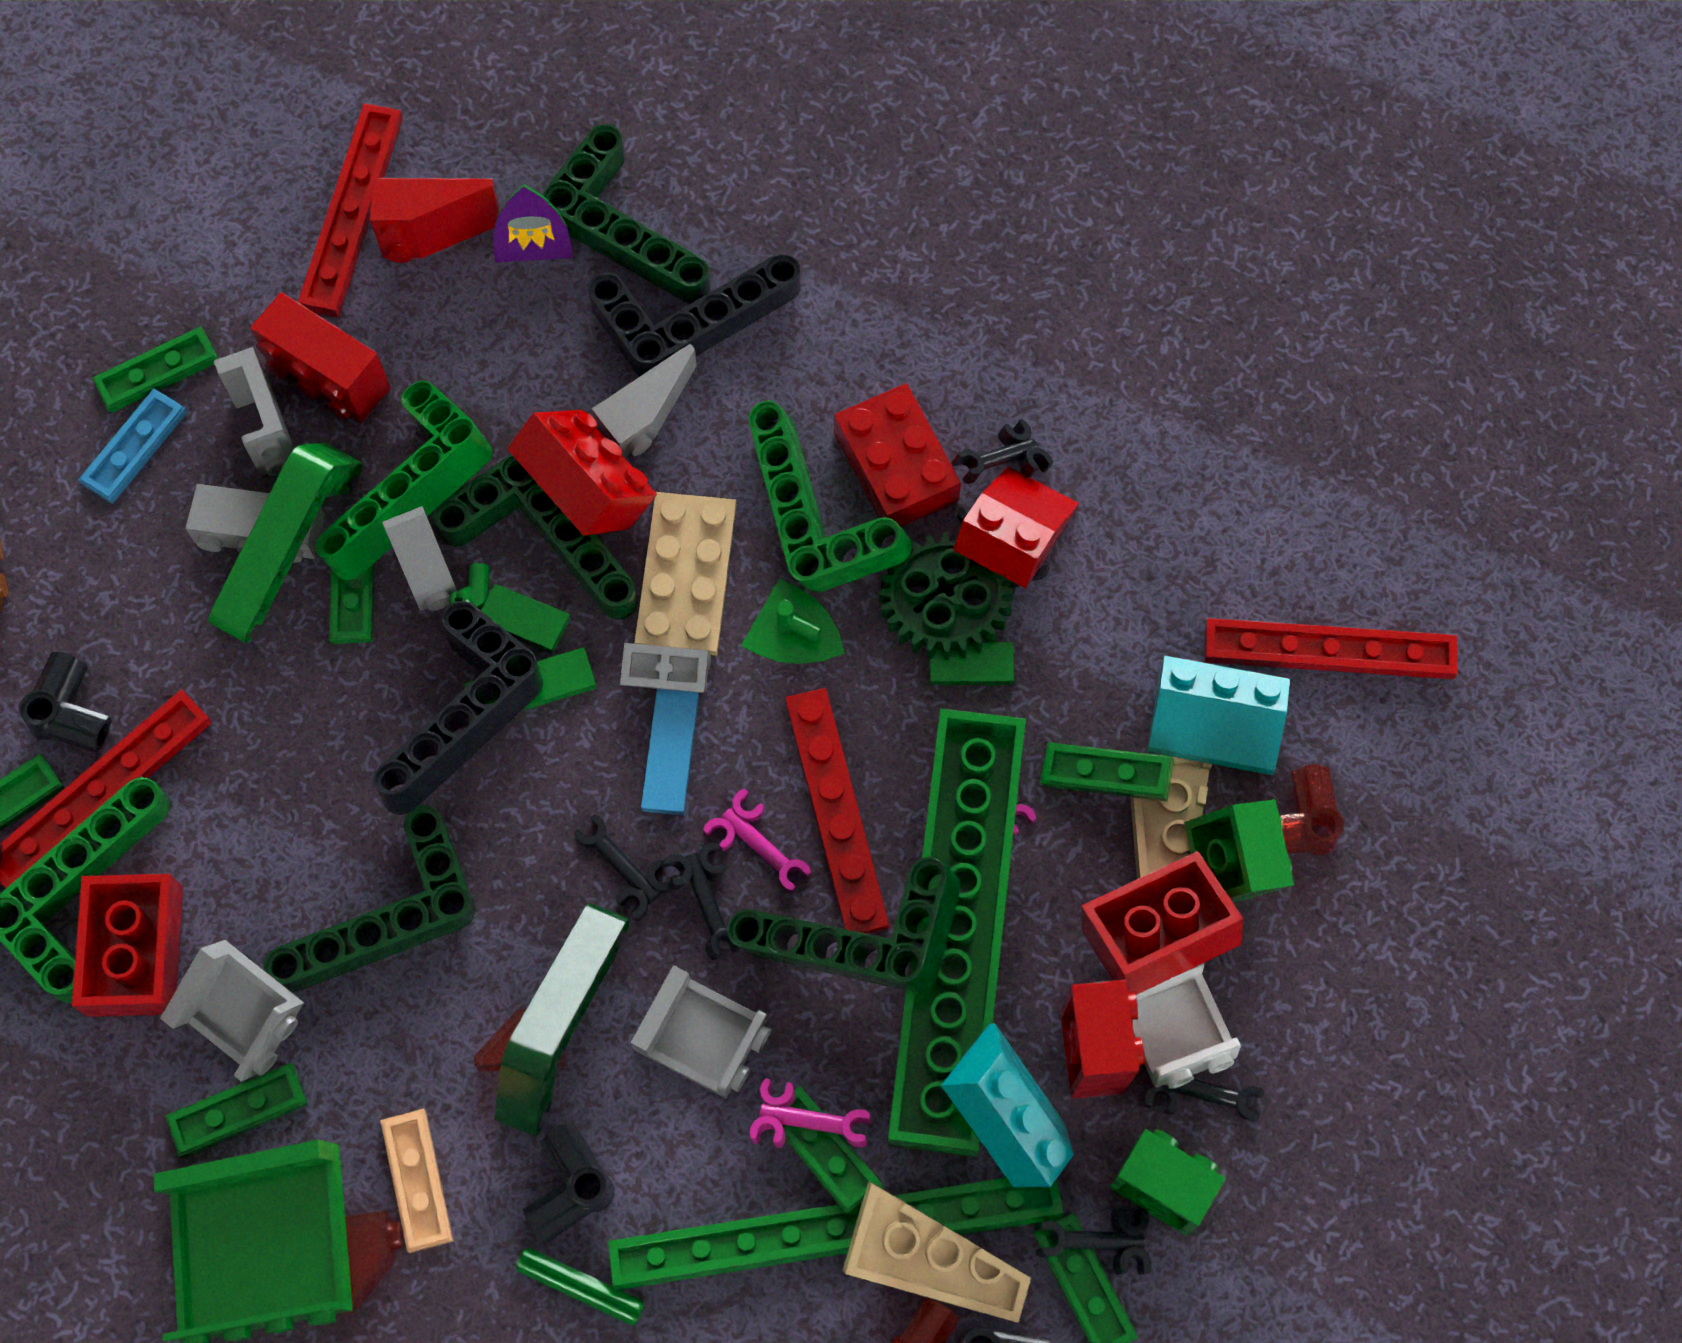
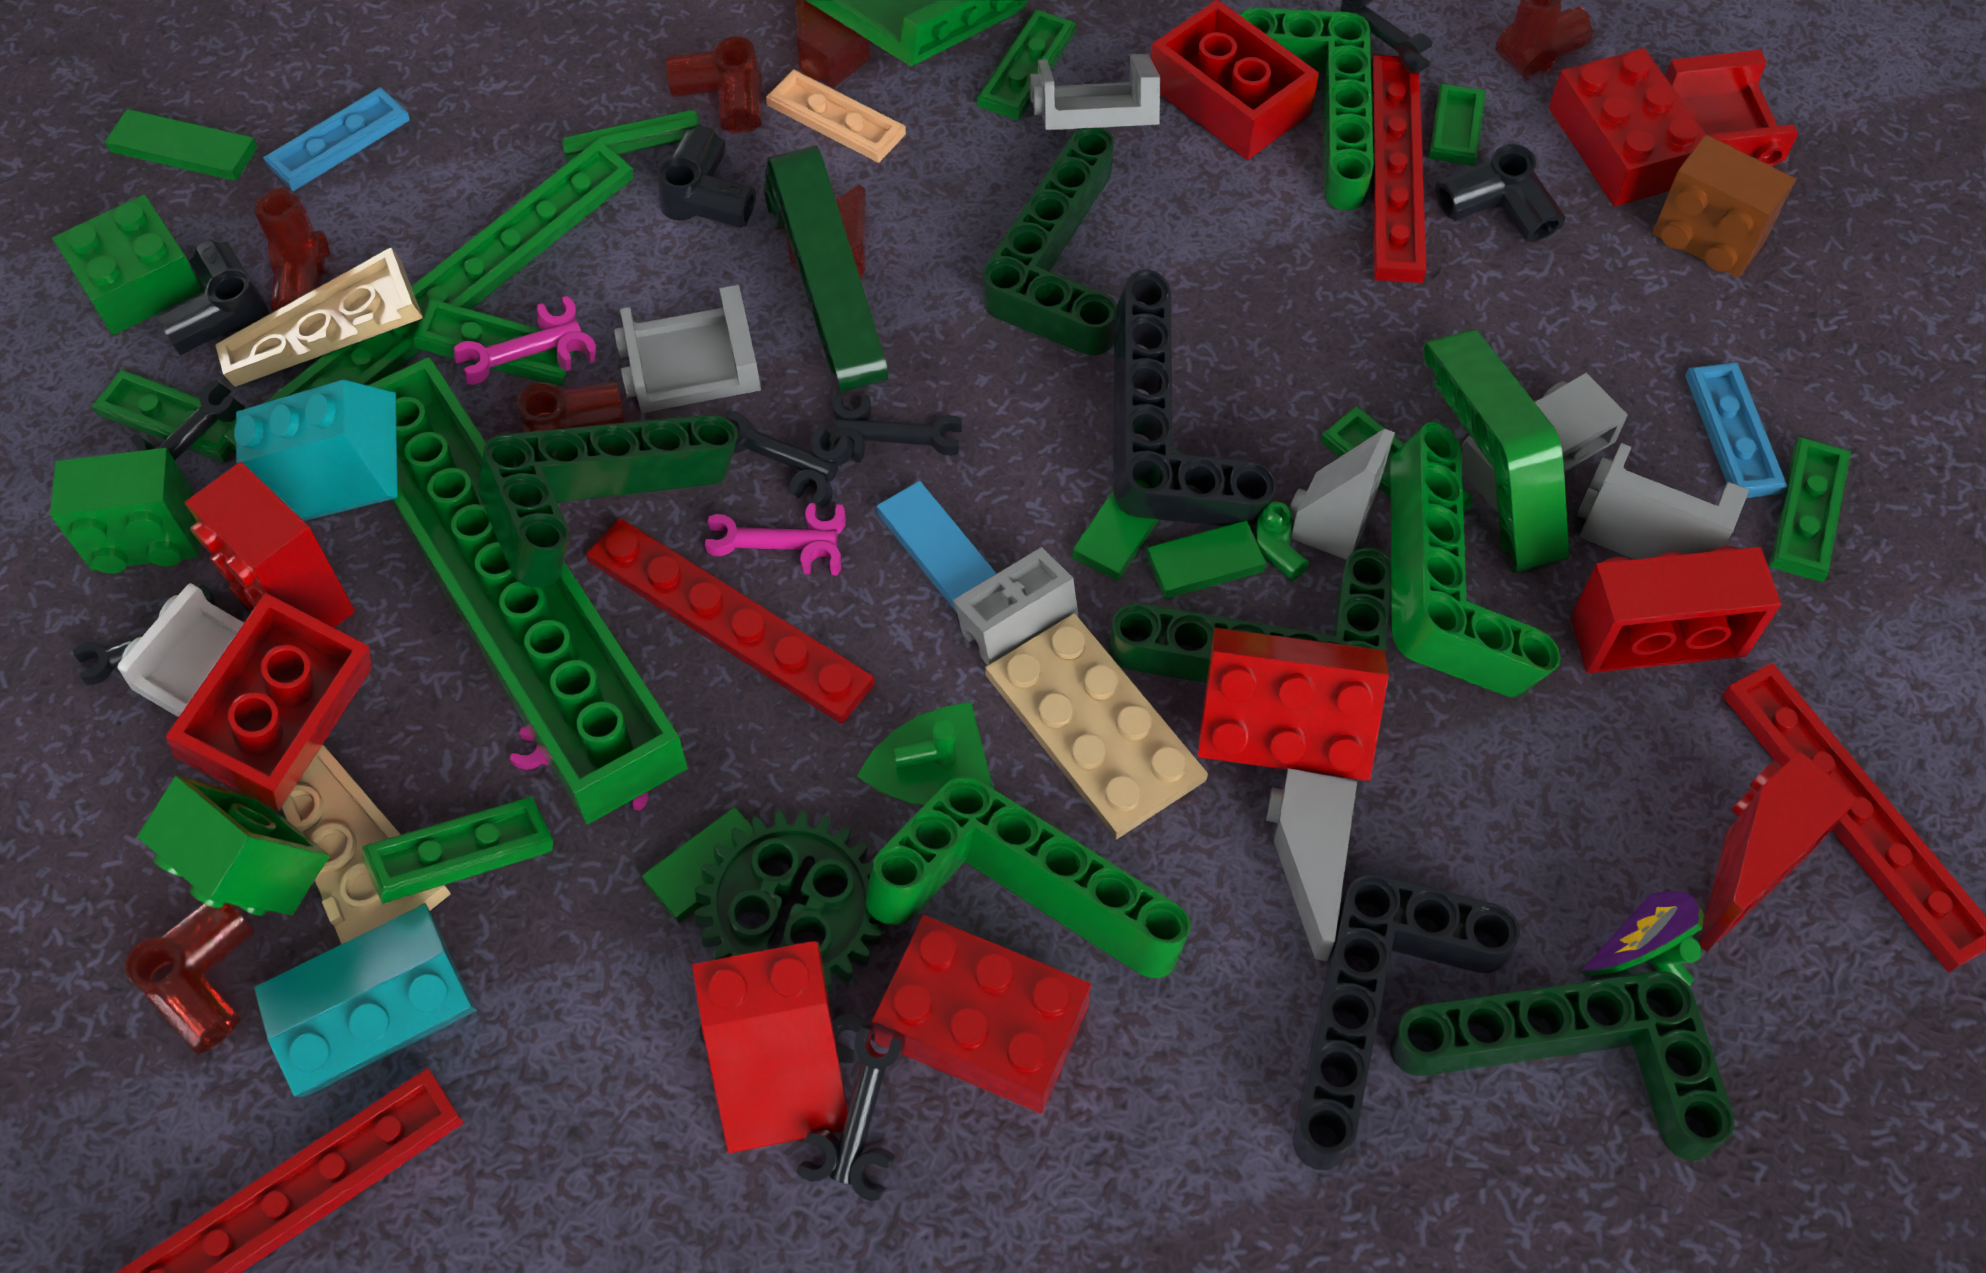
camera: 140 degrees right, 10 degrees down
(475, 1298) = (727, 69): none -> clear red piece
(813, 1041) = (569, 407): none -> clear red piece

